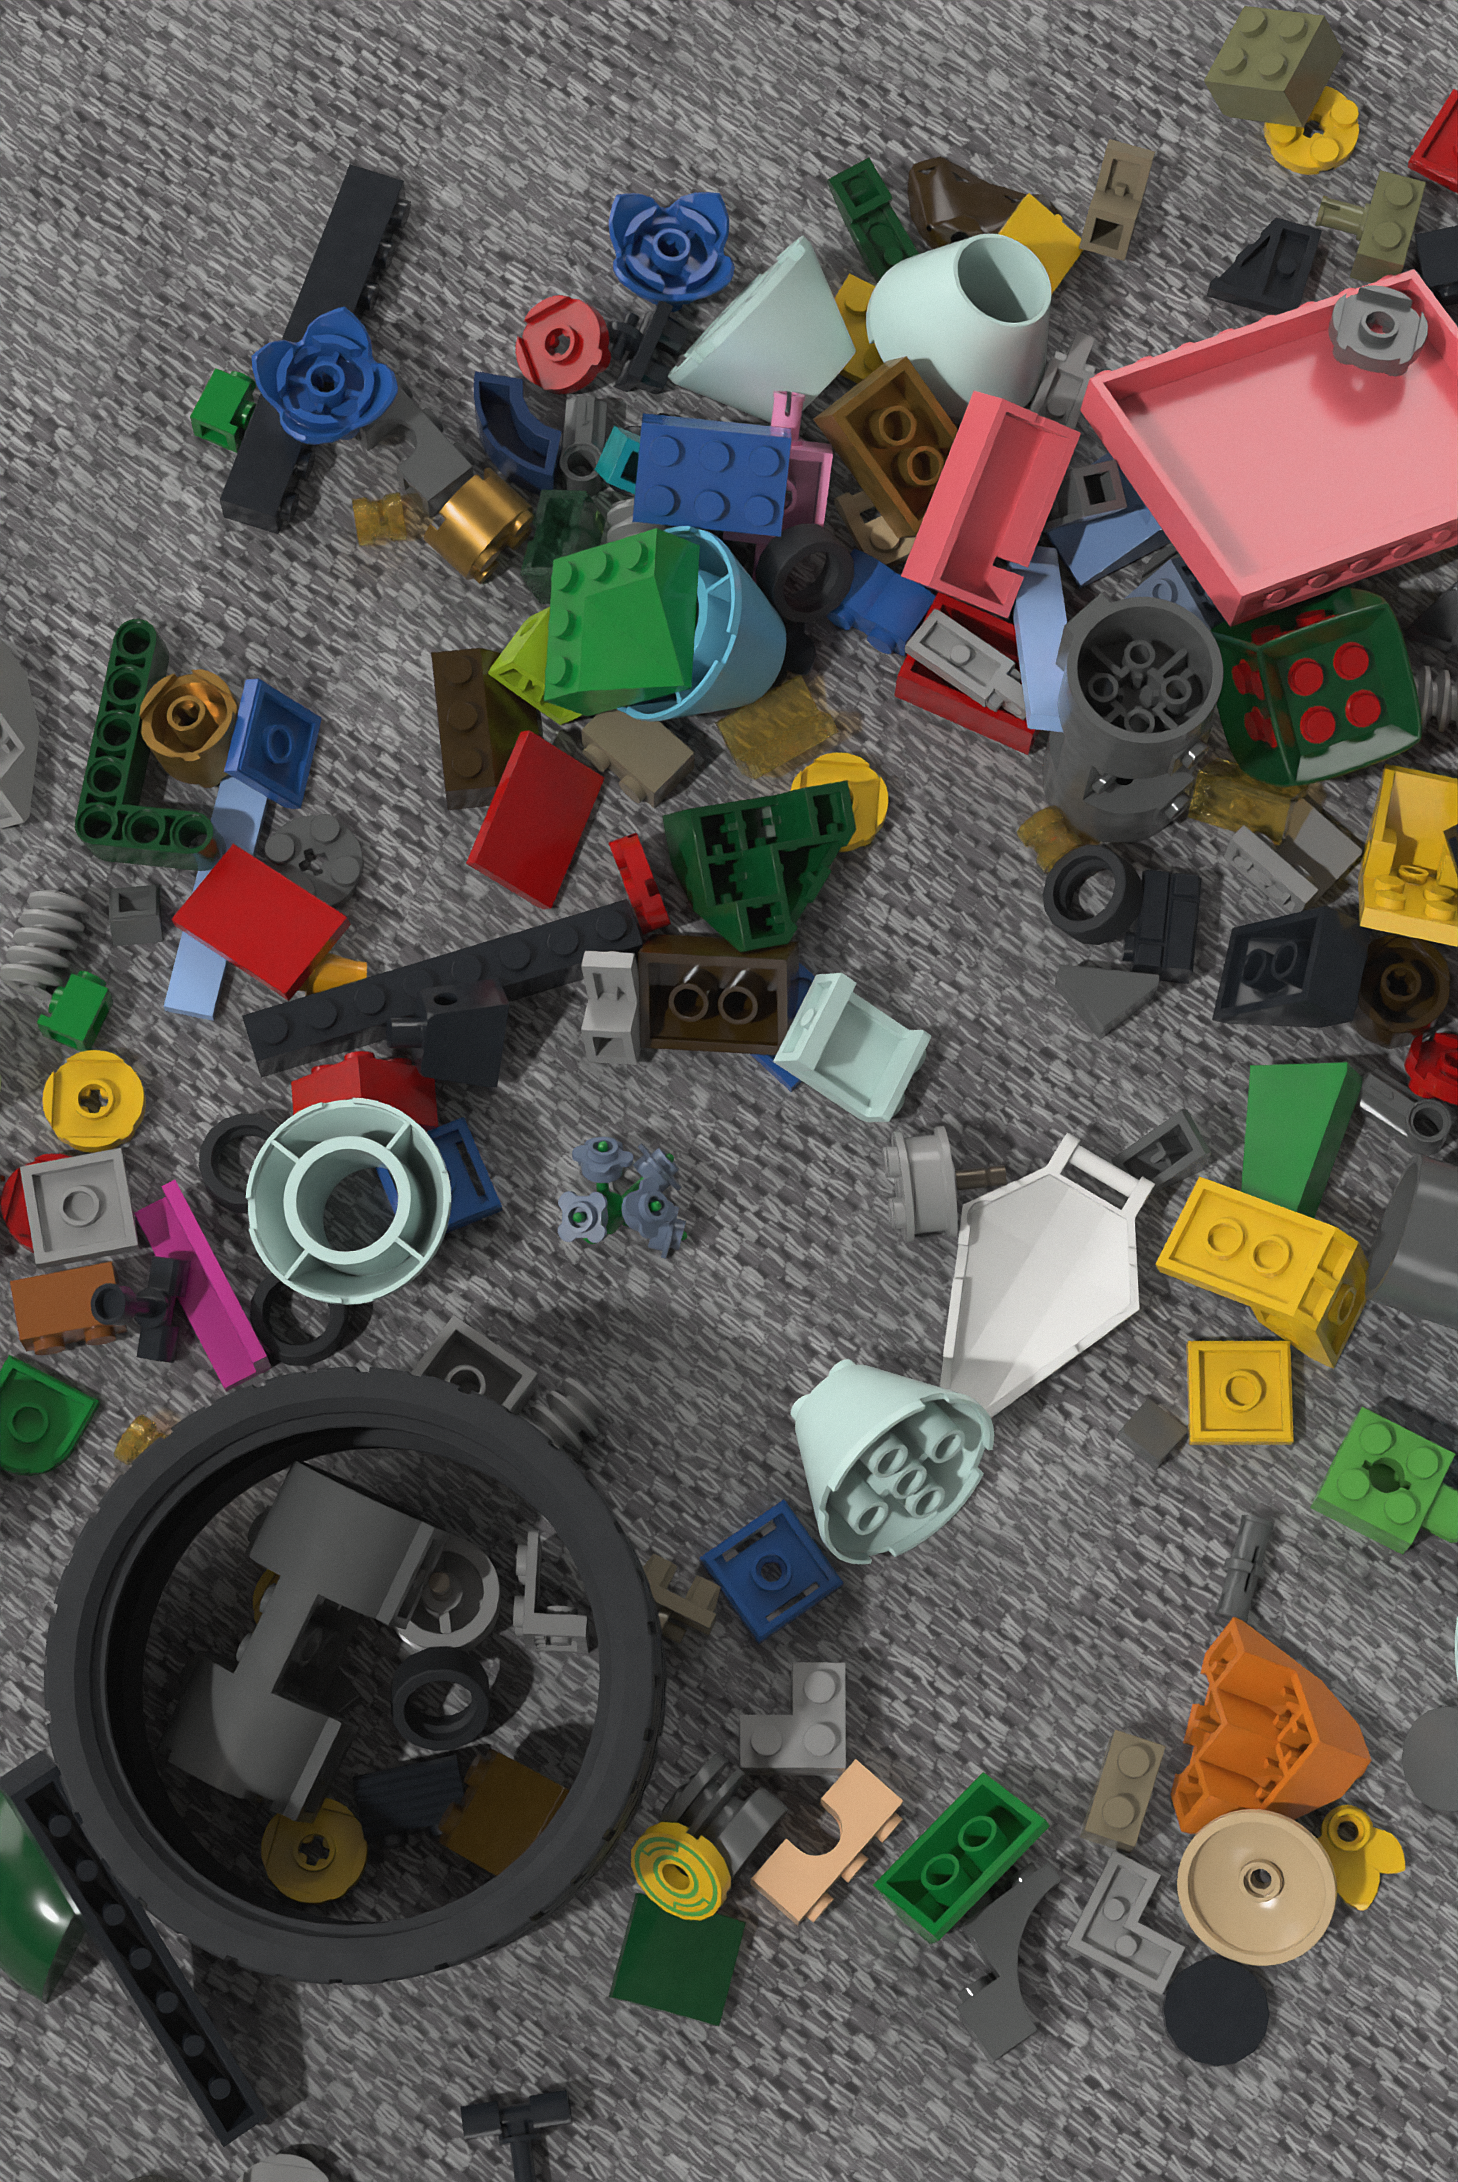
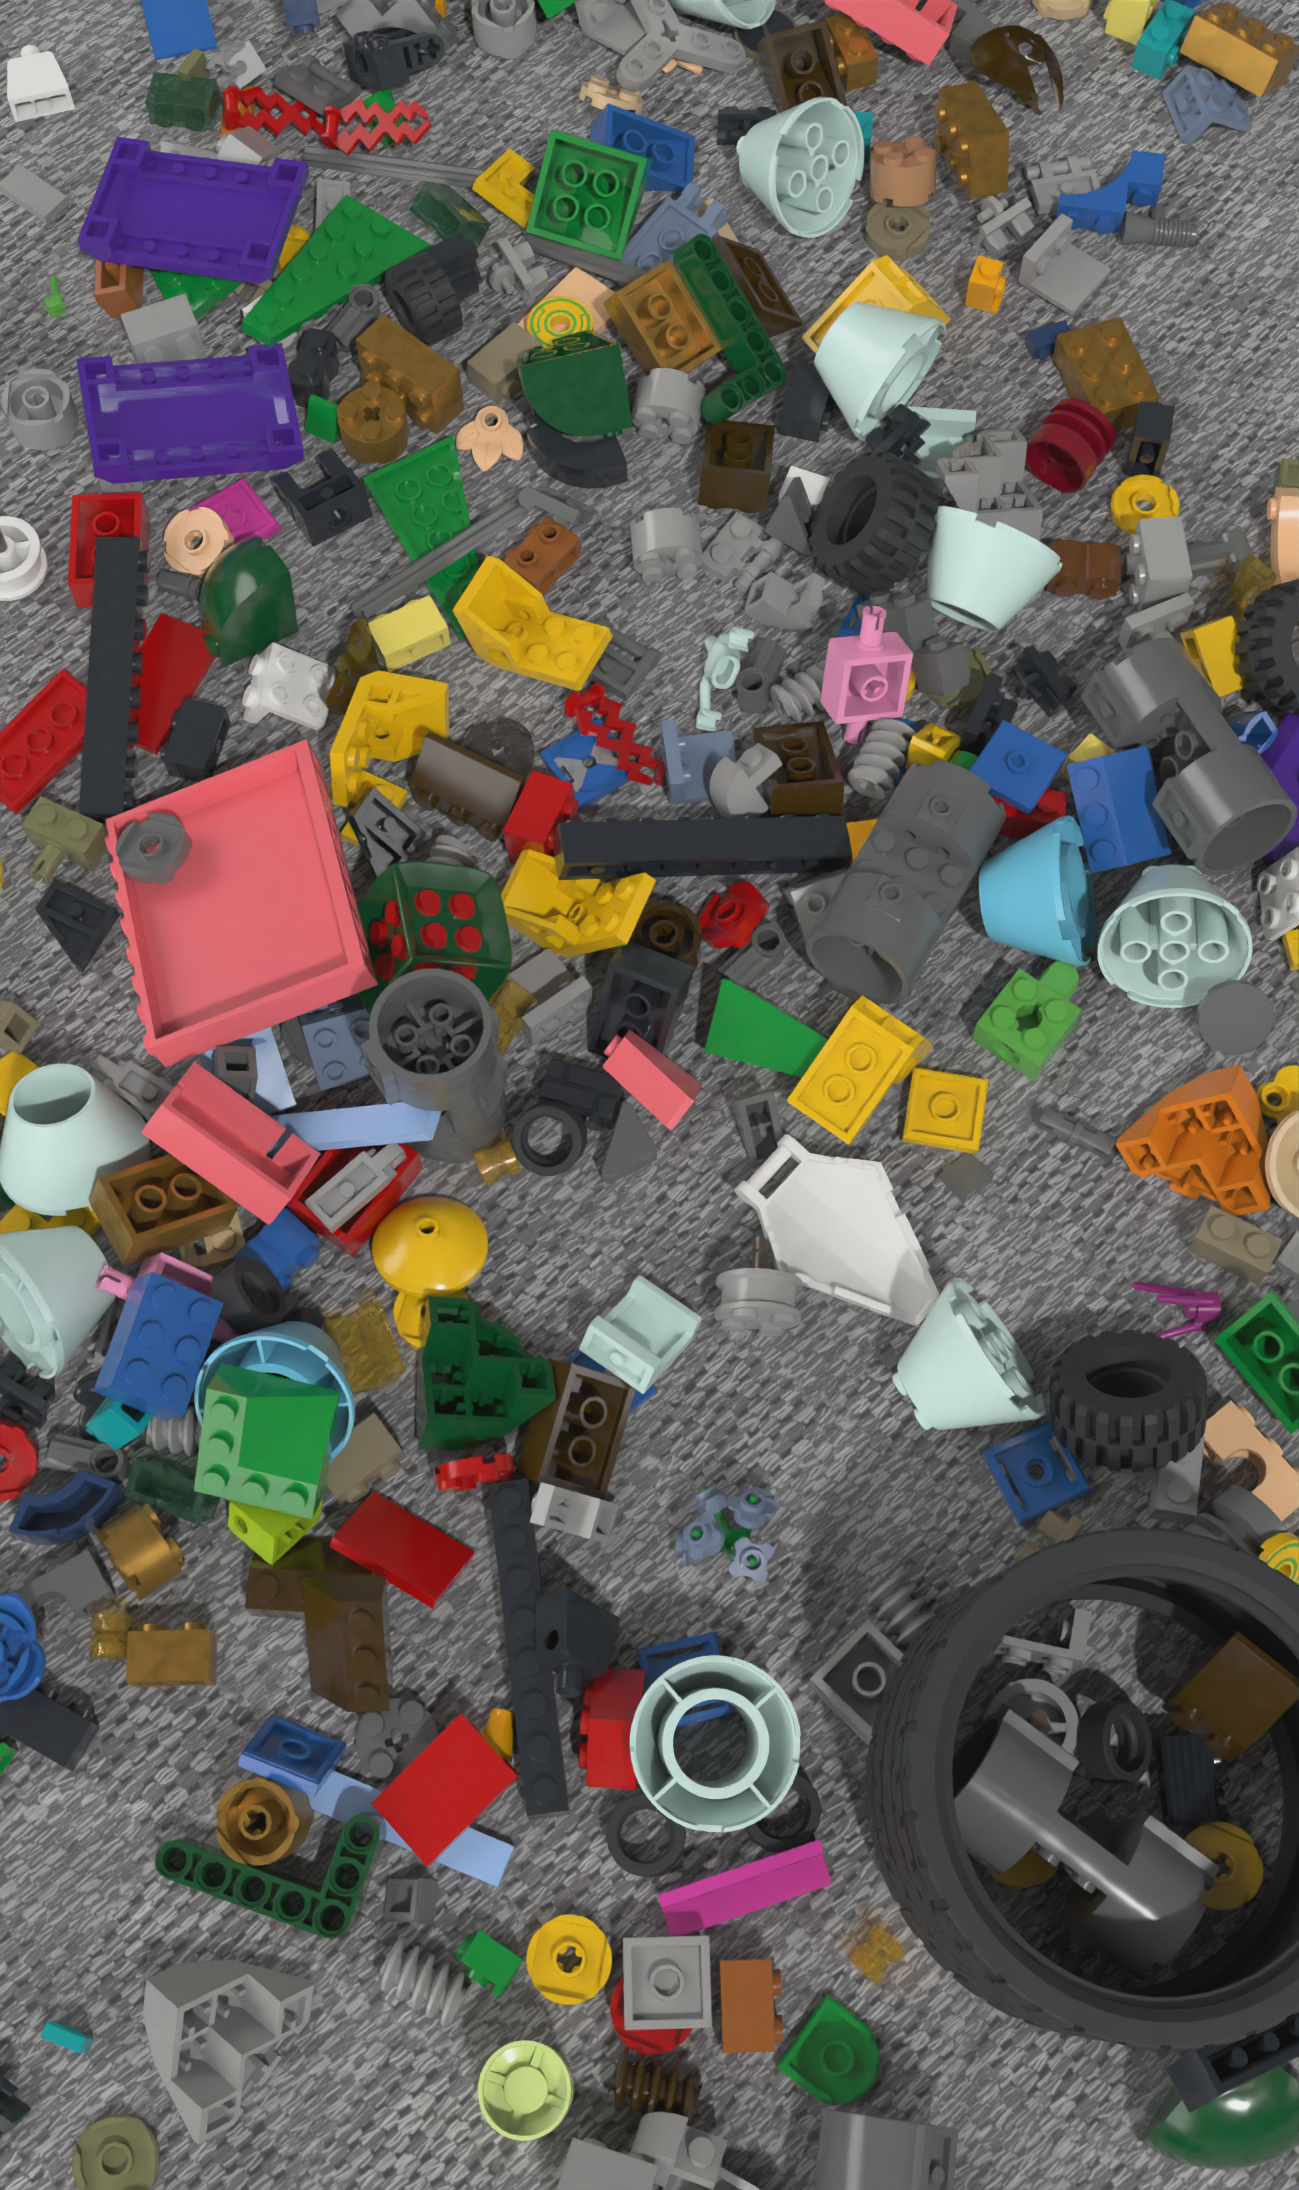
camera: 75 degrees left, 5 degrees down
(150, 1307) = (765, 1935): black bar -> none
(365, 589) = (171, 1656): none -> pearl gold brick
(412, 781) = (349, 1641): none -> dark brown slope
(825, 1671) = (1128, 1400): none -> black tyre
(911, 800) = (434, 1261): none -> yellow dish
(1031, 1755) = (1197, 1306): none -> magenta plant
(1195, 1003) = (651, 1078): none -> coral slope

